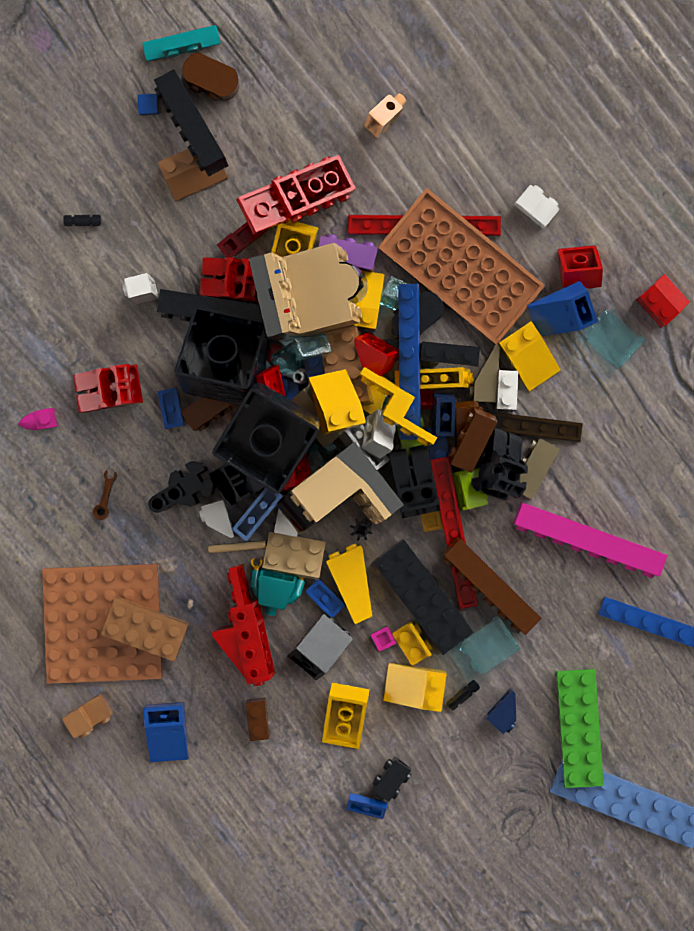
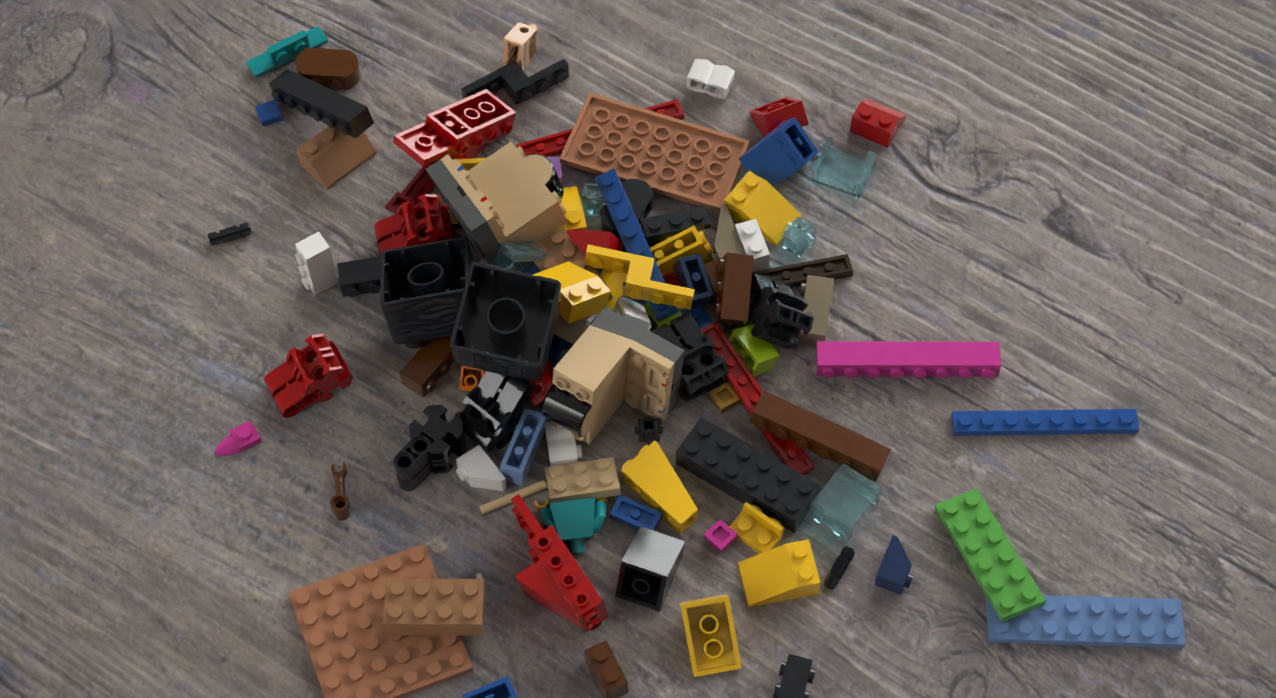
camera: 20 degrees left, 30 degrees down
(170, 408) = (387, 379): blue plate -> none
(368, 151) = (517, 83): none -> black bracket
(544, 400) = (798, 236): none -> clear light blue brick

